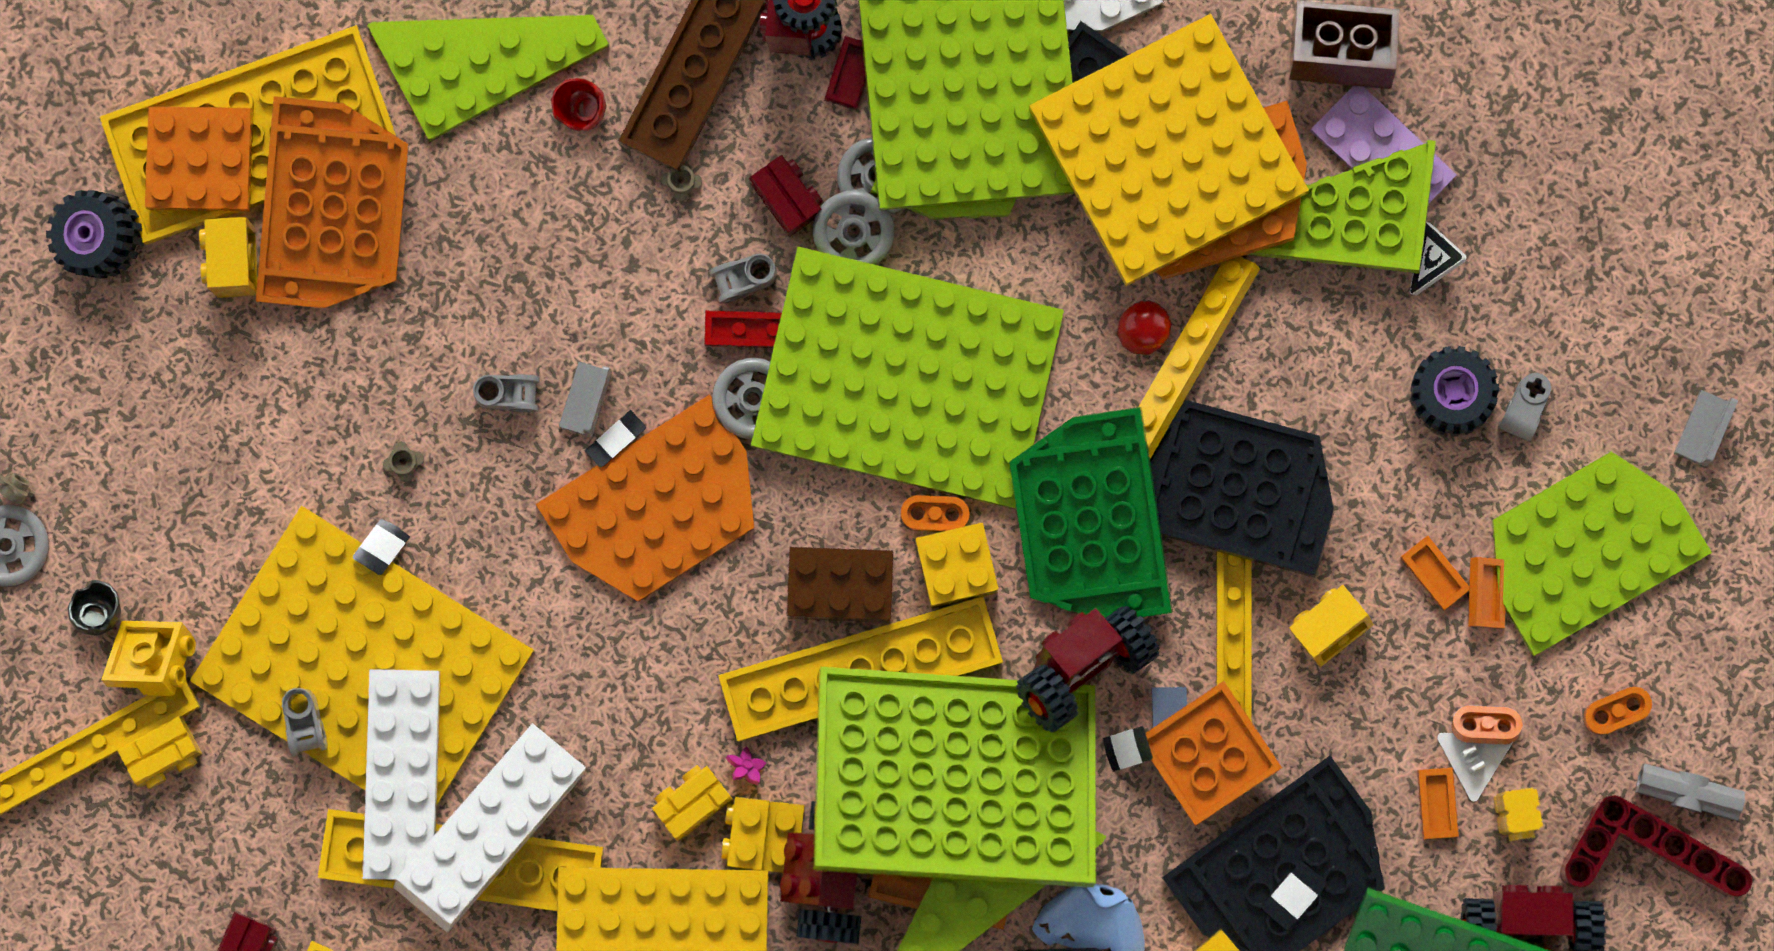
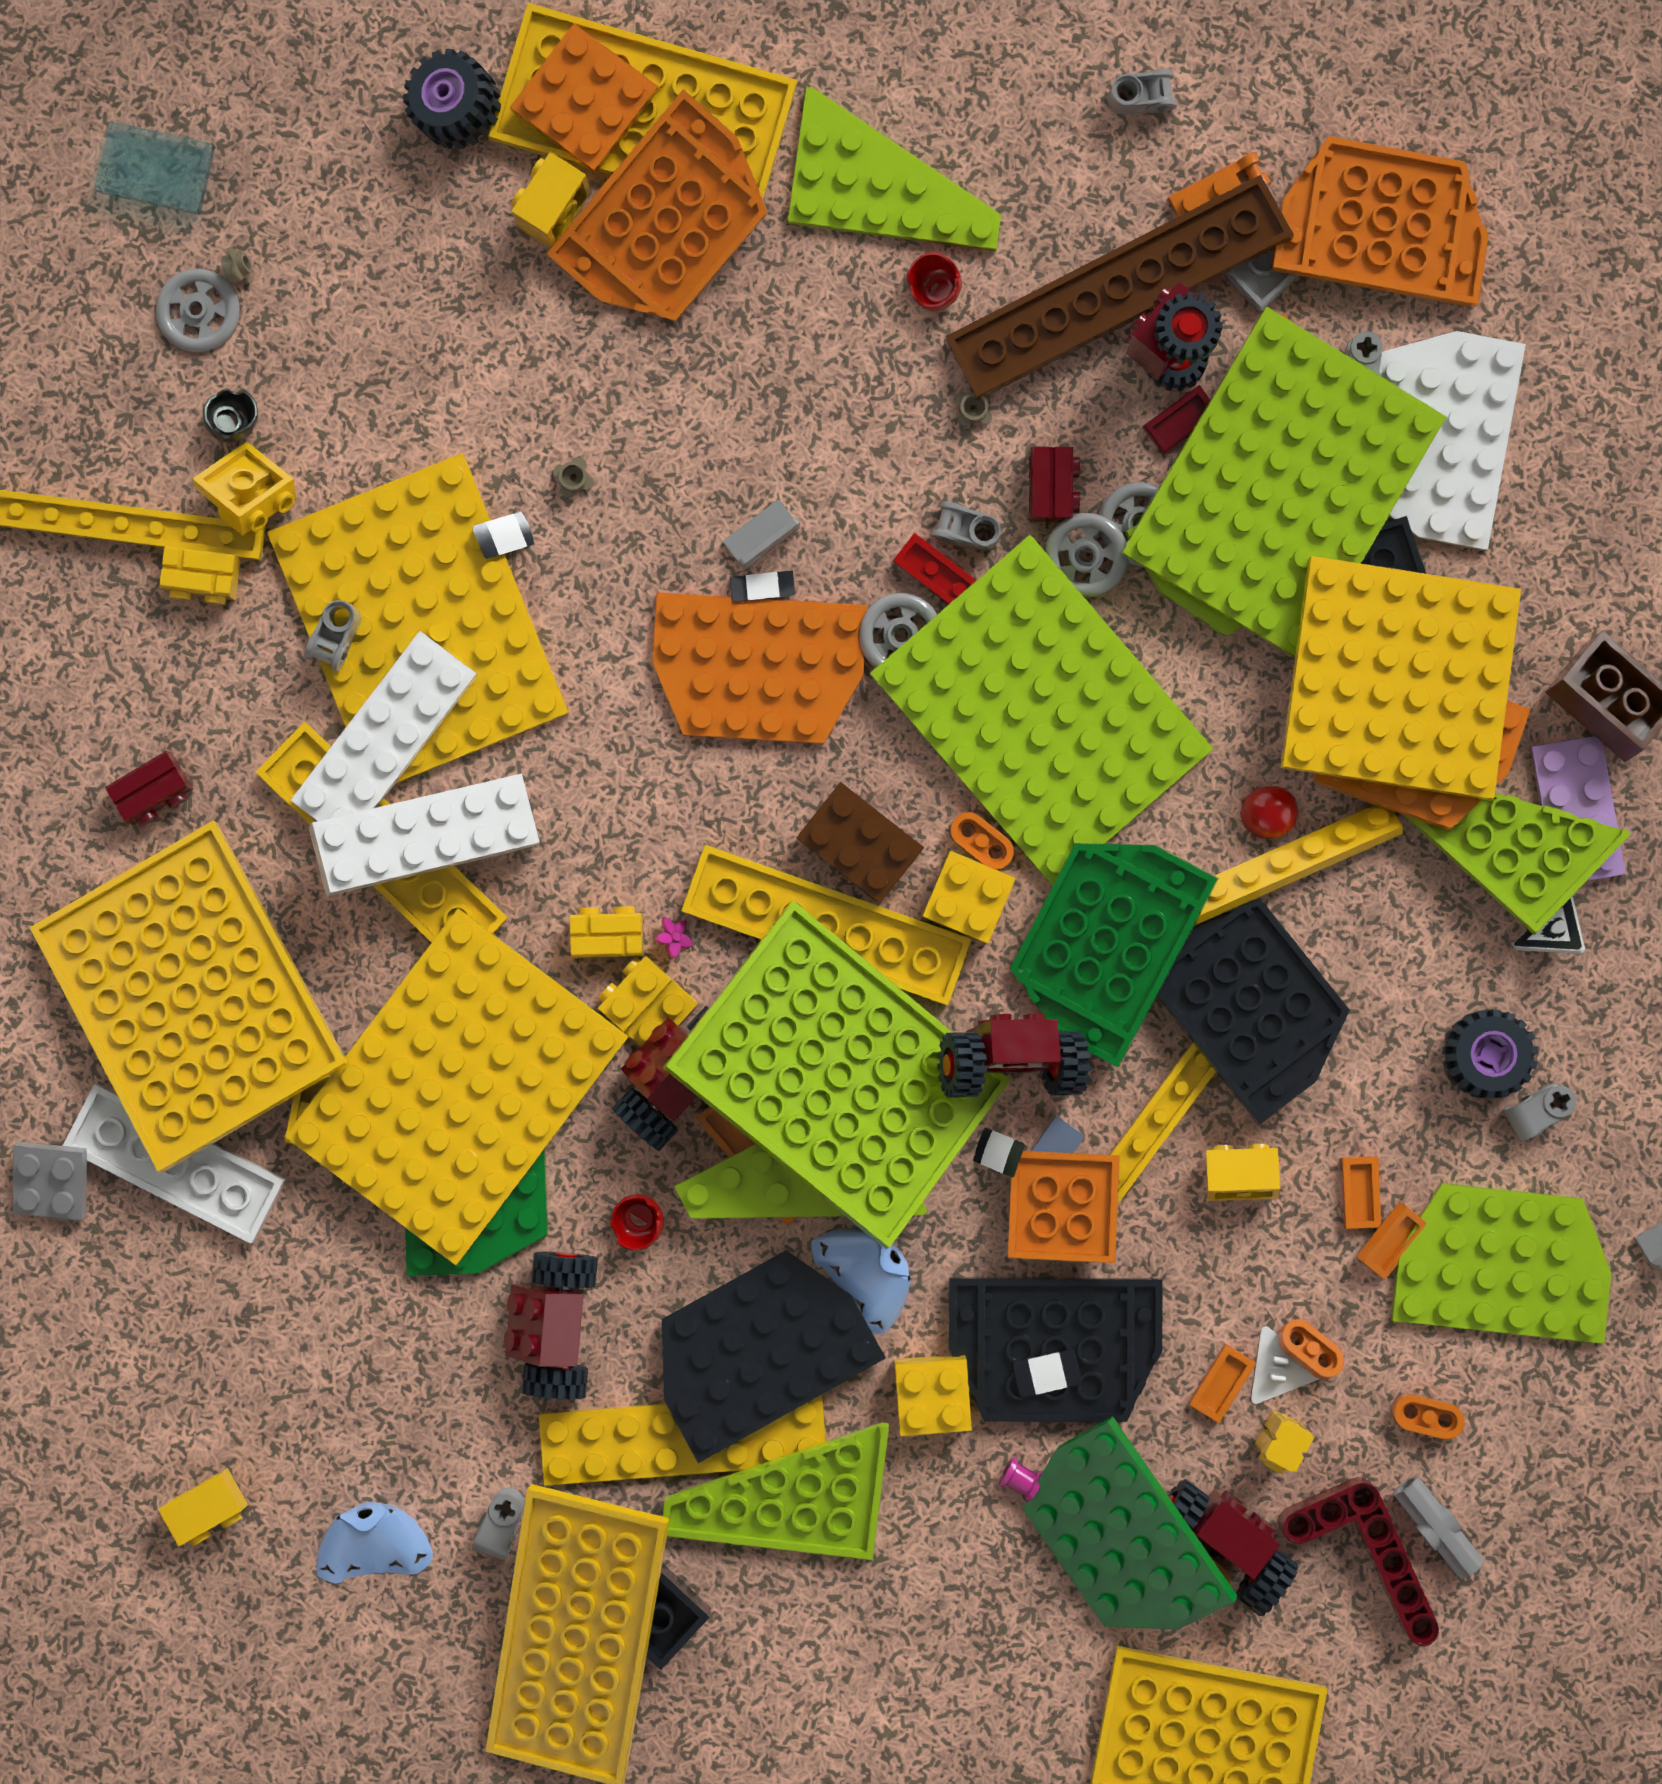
camera: 30 degrees right, 5 degrees up
(509, 393) = (702, 483): light grey piece -> none

